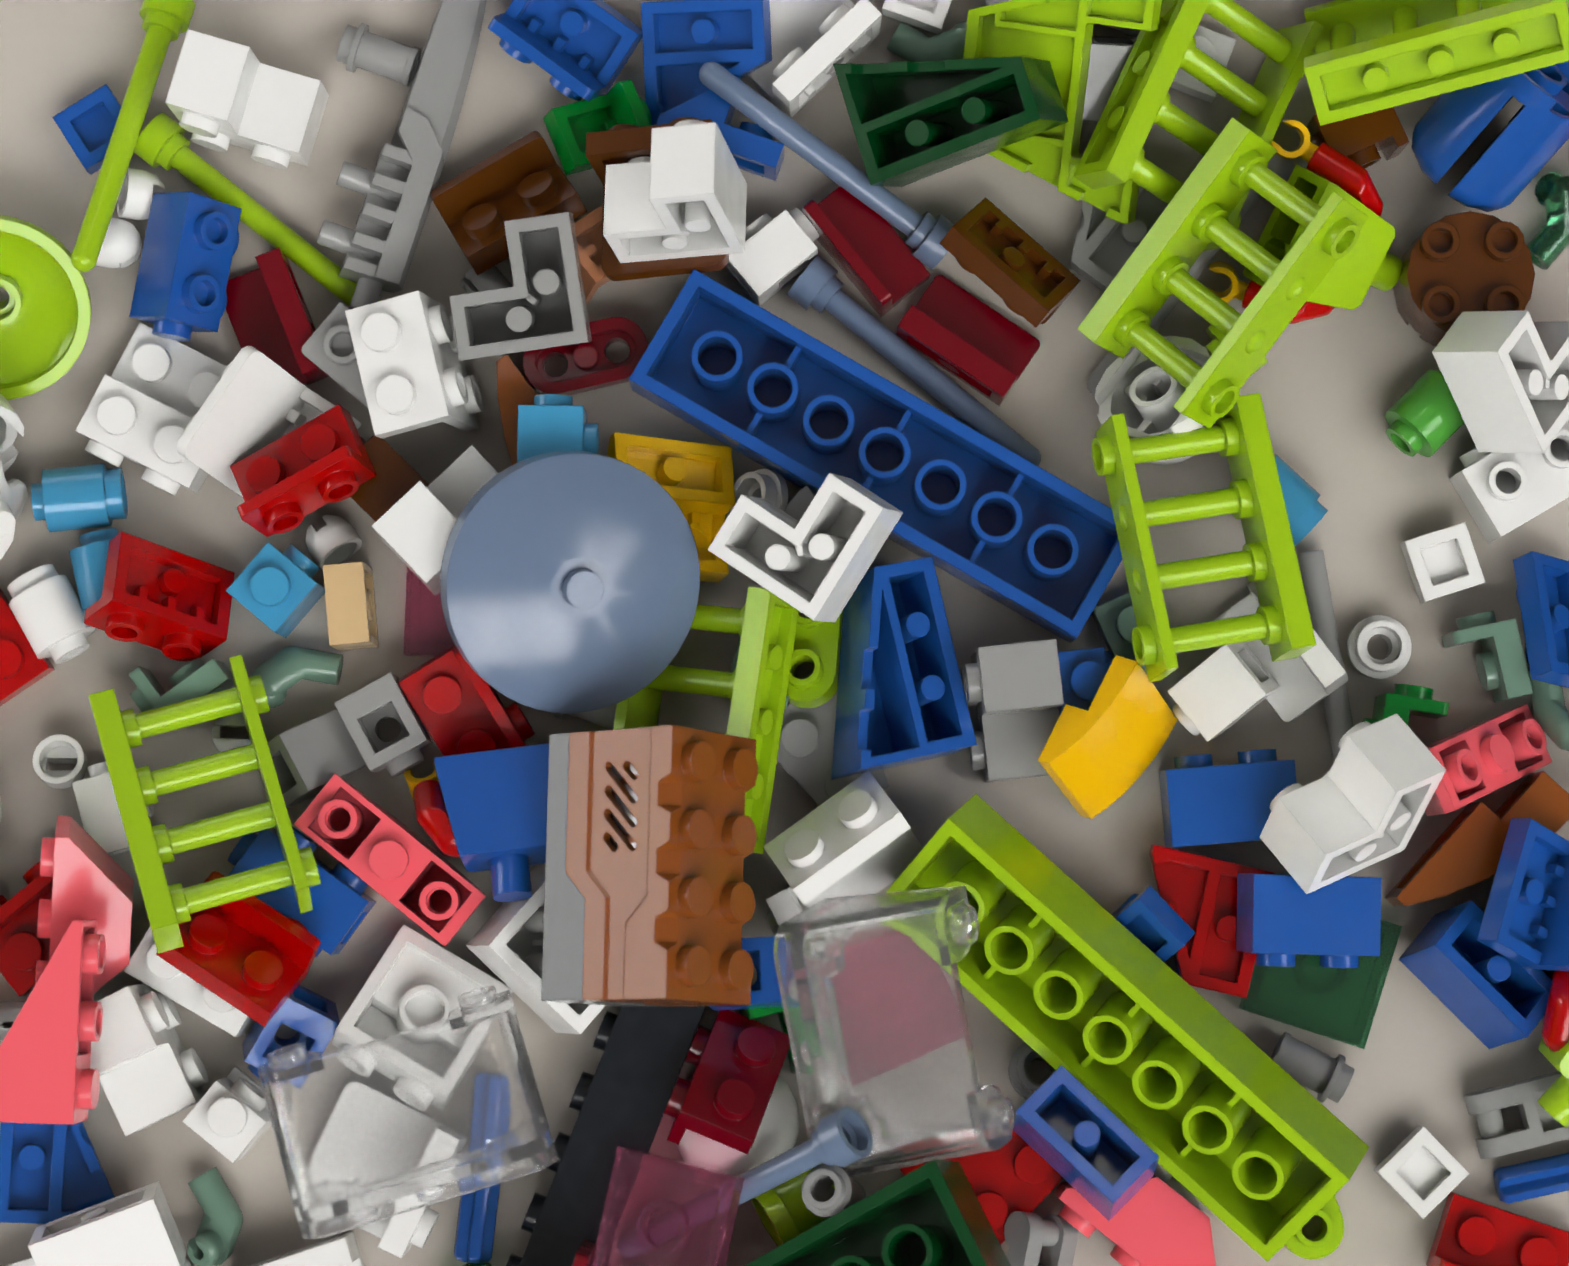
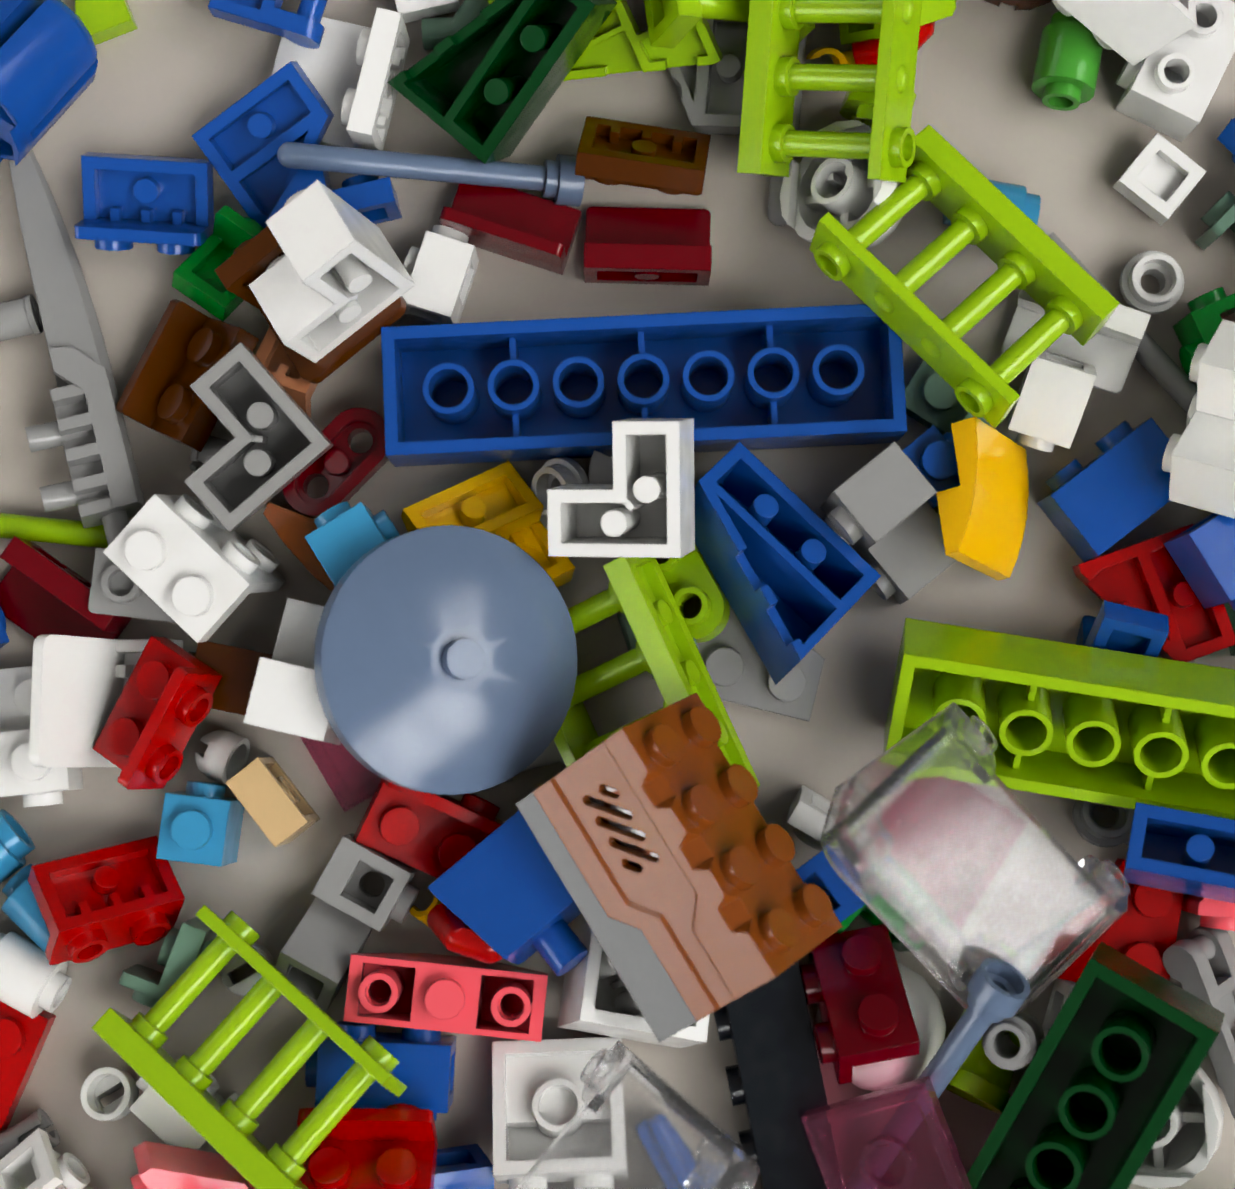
camera: 30 degrees left, 0 degrees up
(293, 665) = (256, 882): sand green arm -> none
(823, 291) = (499, 282): sand blue piece -> none
(846, 845) = (824, 731): white bracket -> none

